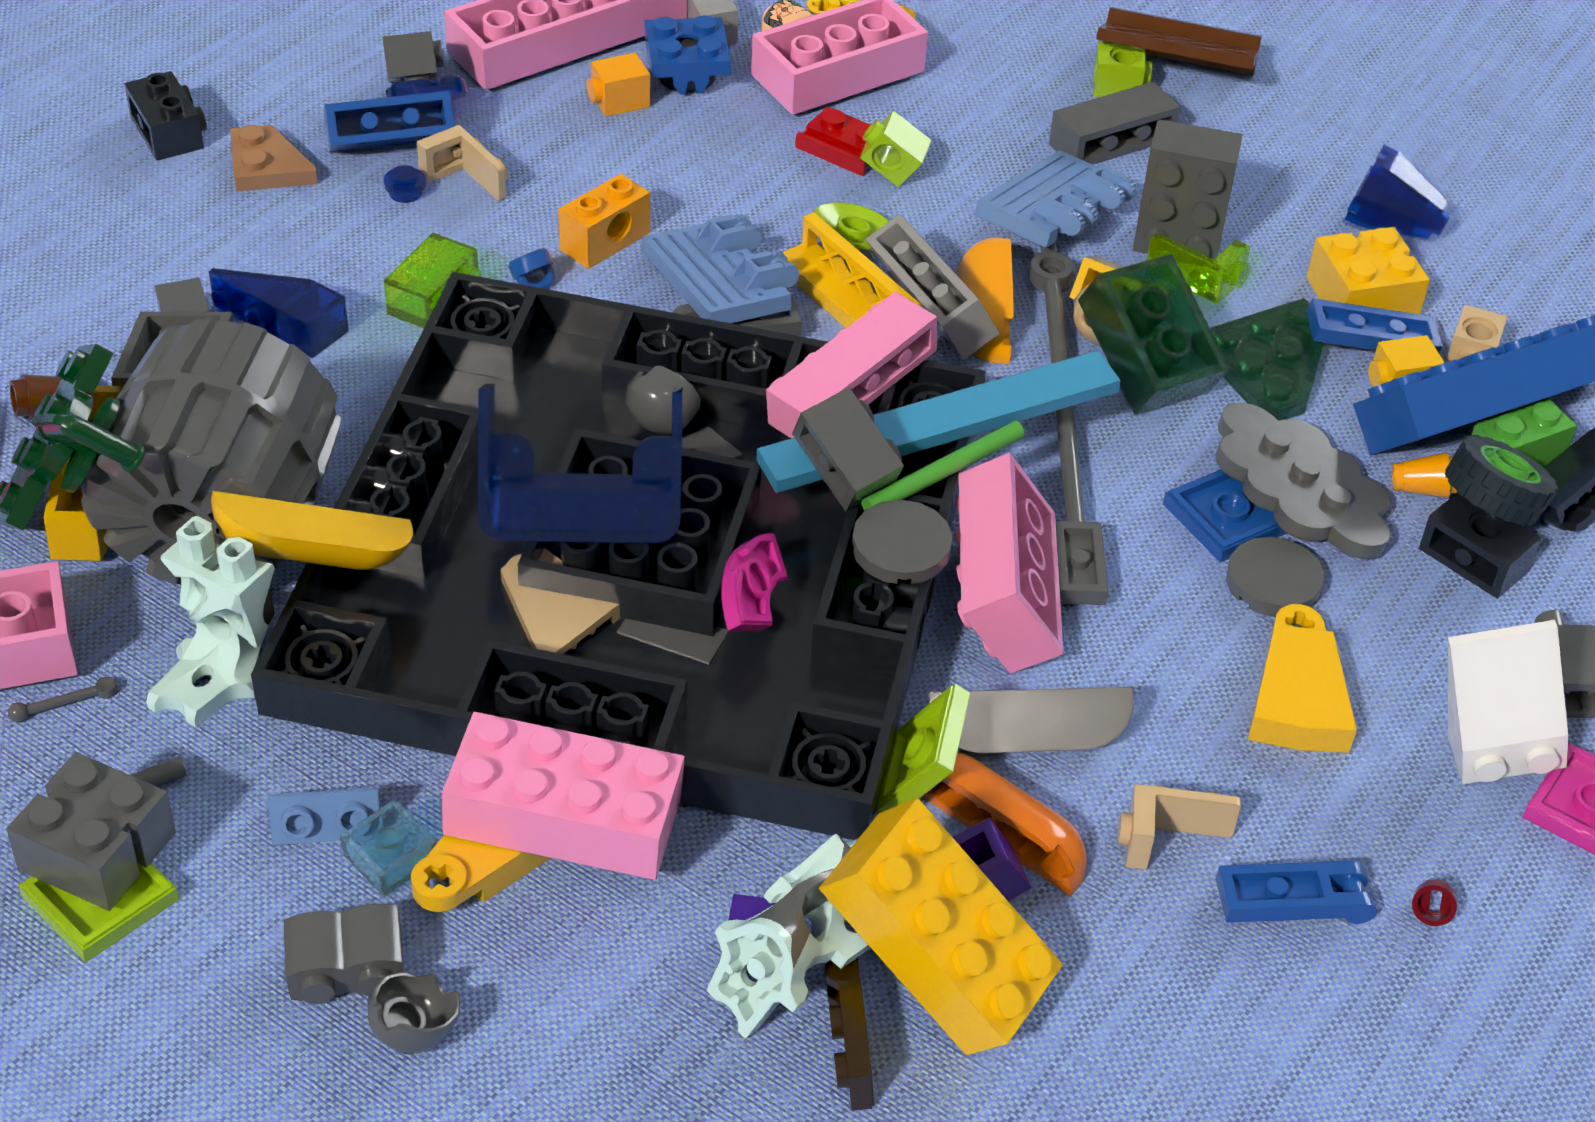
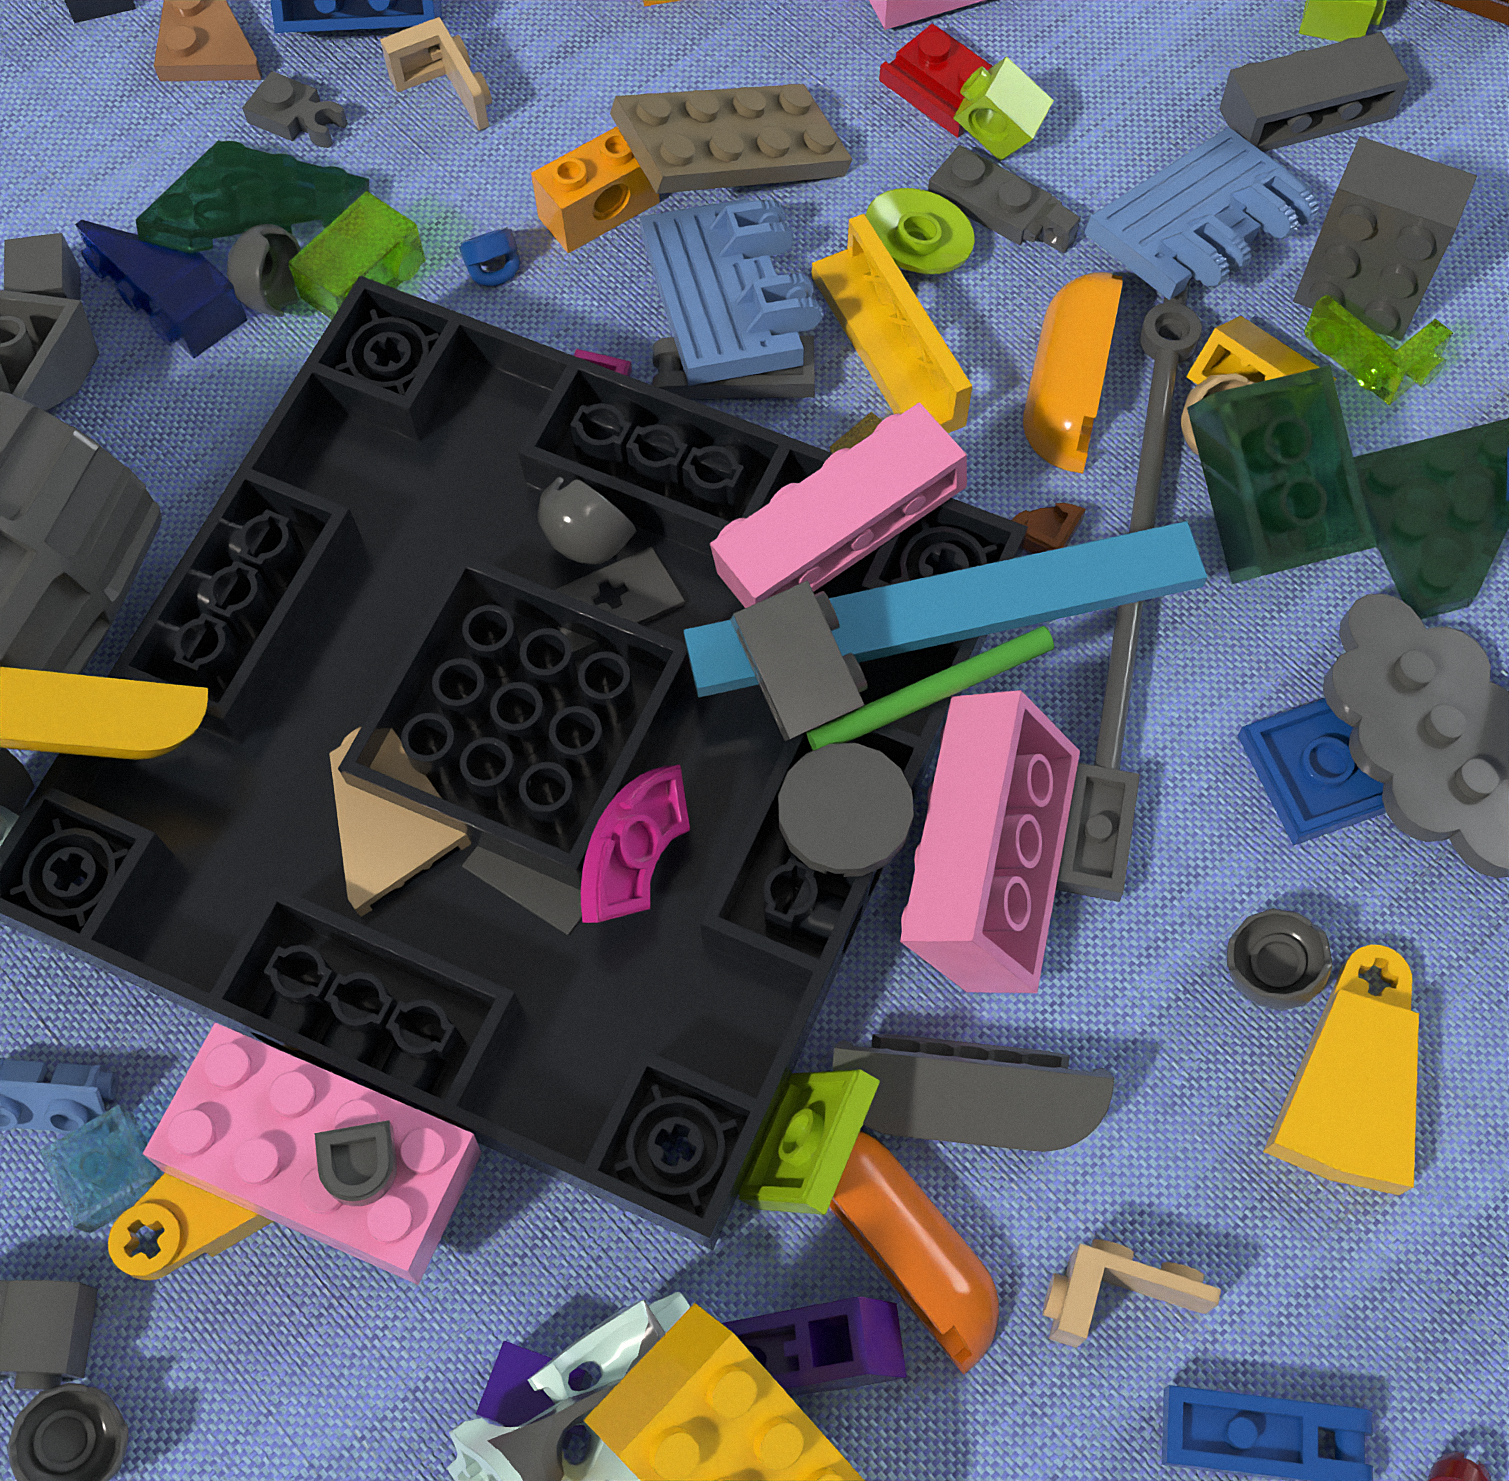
camera: 15 degrees right, 20 degrees up
(321, 246) = (244, 188): none -> clear green plate
(348, 196) = (291, 107): none -> dark grey plate
(363, 288) = (261, 269): none -> dark grey hair
(405, 183) = (363, 94): clear blue plate -> none
(571, 506) = (423, 687): clear blue windscreen -> none
(608, 770) = (357, 1162): none -> dark grey tile
(700, 178) = (729, 137): none -> dark tan plate
(917, 207) = (1004, 201): none -> dark grey hinge
(934, 285) = (996, 355): light grey brick -> none
(1228, 618) = (1279, 959): none -> dark grey hair
(1274, 574) = (1363, 886): dark grey tile -> none

